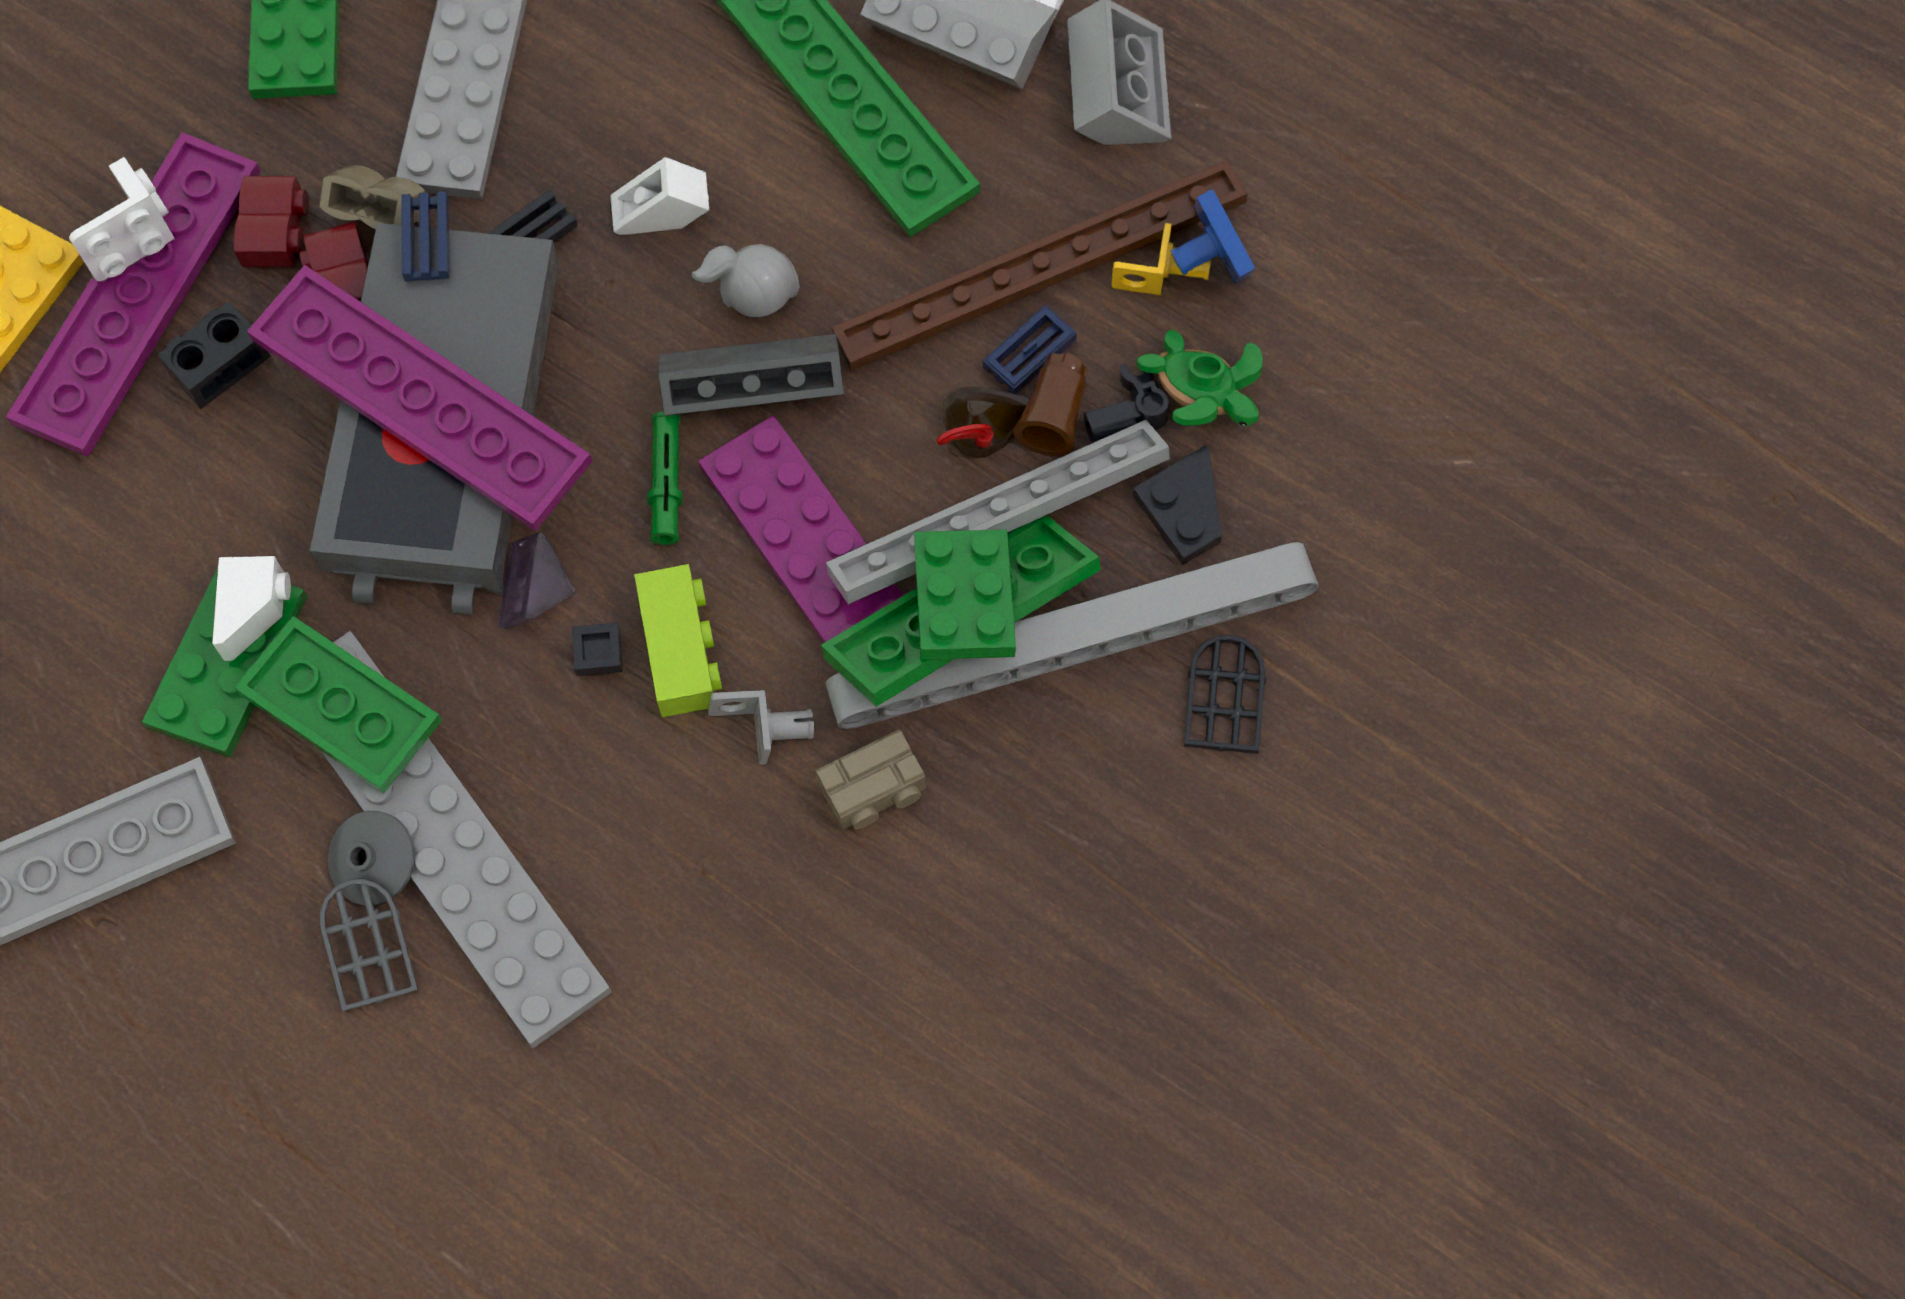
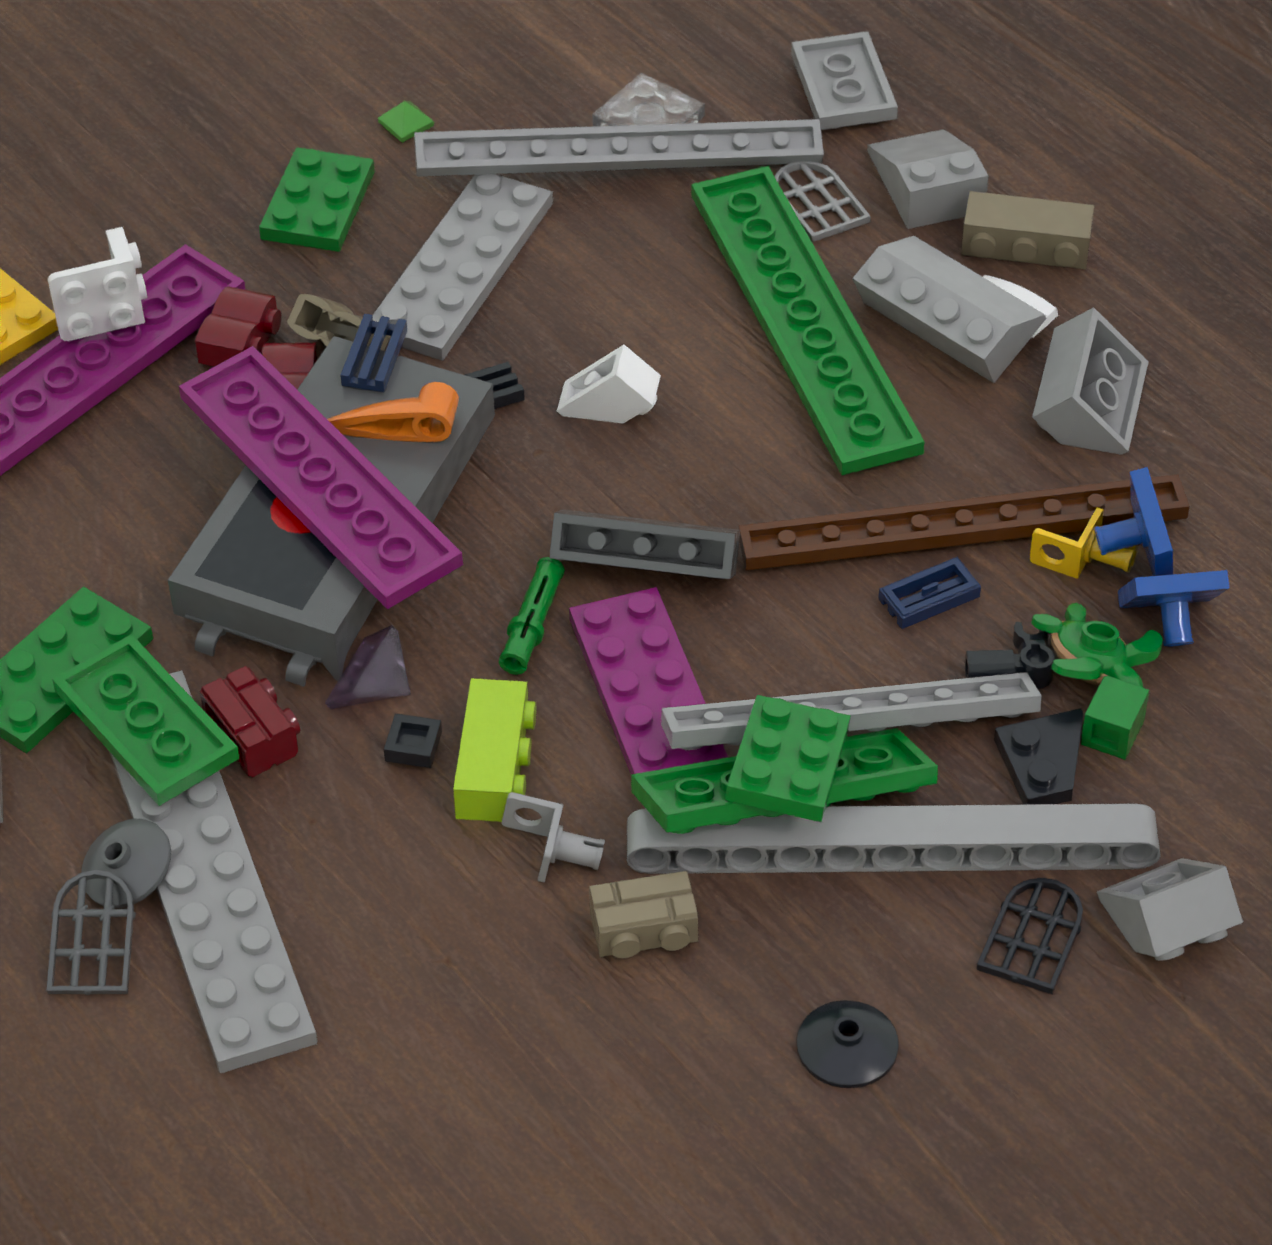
camera: 15 degrees right, 20 degrees down
(221, 362) = (144, 422): black brick -> none
(247, 601) = (93, 614): white slope -> none
(436, 670) = (252, 719): none -> dark red brick
(484, 306) = (405, 419): none -> orange piece
(752, 279) = (673, 467): light grey hair -> none
(980, 419) = (863, 639): dark brown piece -> none
(1053, 407) = (935, 639): reddish brown plant -> none
(1088, 878) = (844, 1059): none -> black dish
(1240, 448) = (1114, 717): none -> green panel
(1260, 303) = (1173, 596): none -> blue tile
(1343, 638) = (1173, 907): none -> light grey slope

